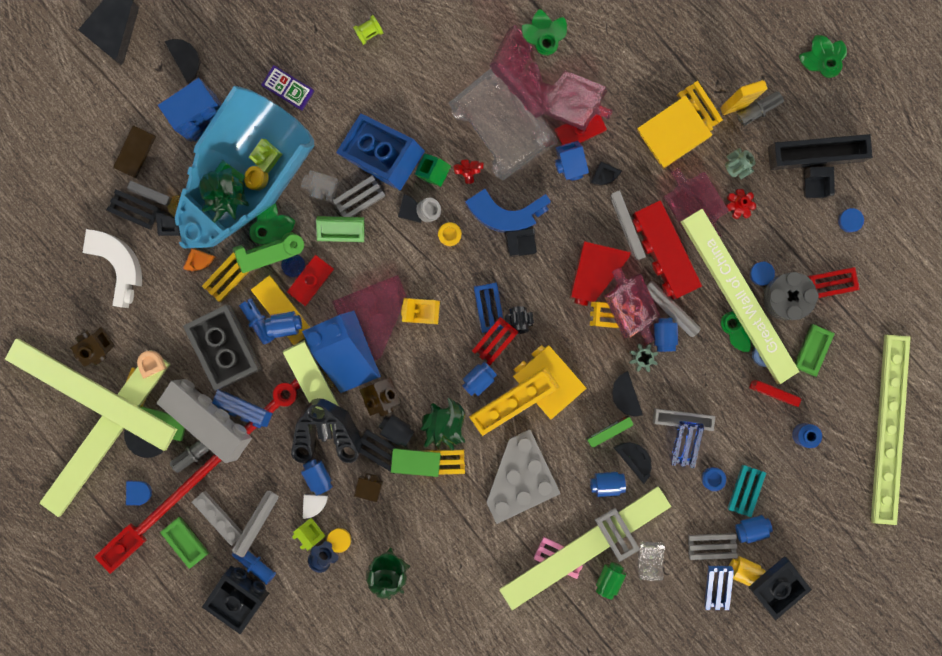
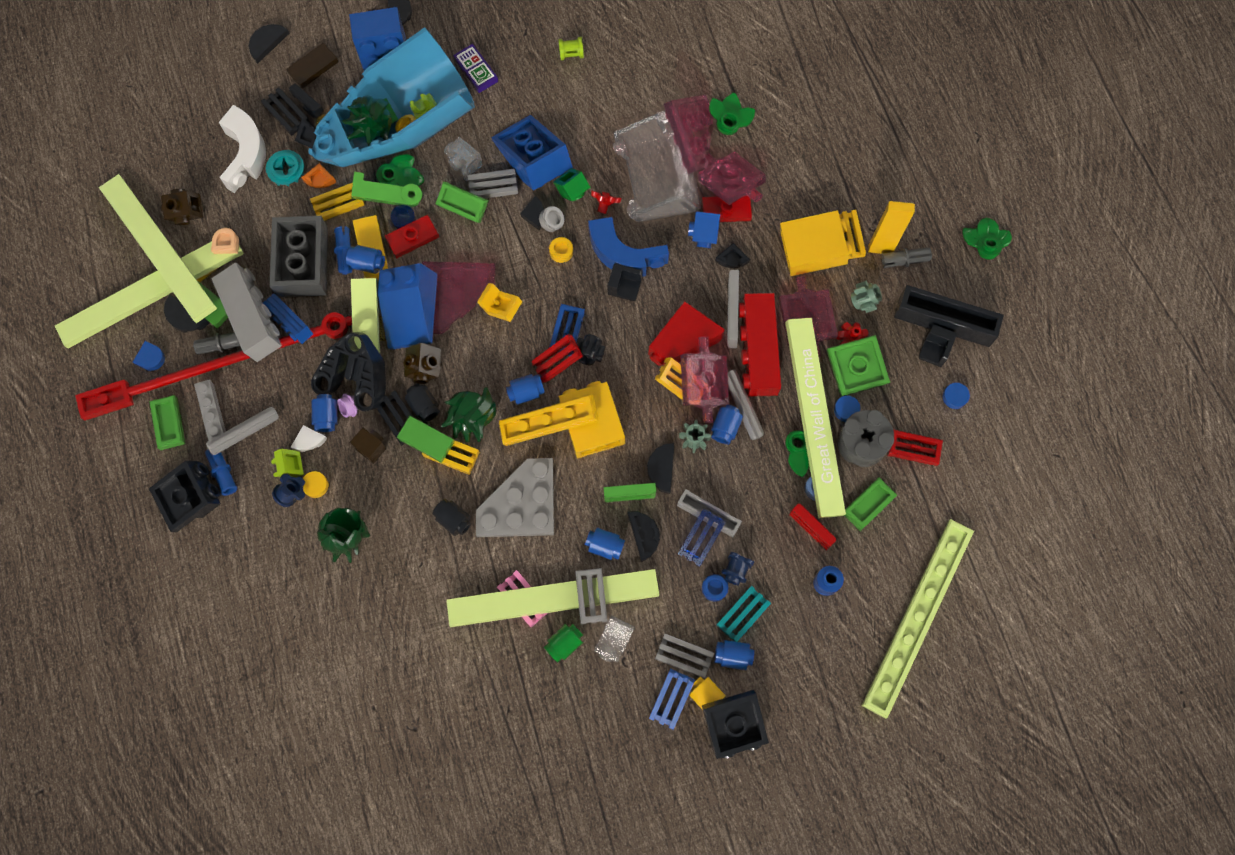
camera: 25 degrees right, 15 degrees down
(76, 145) = (265, 40): none -> black tile
(152, 264) = (276, 165): none -> teal gear
(333, 462) = (347, 406): none -> lavender plate
(470, 518) = (452, 517): none -> black brick
(726, 457) = (737, 568): none -> dark blue brick
(757, 231) = (858, 366): none -> bright green plate

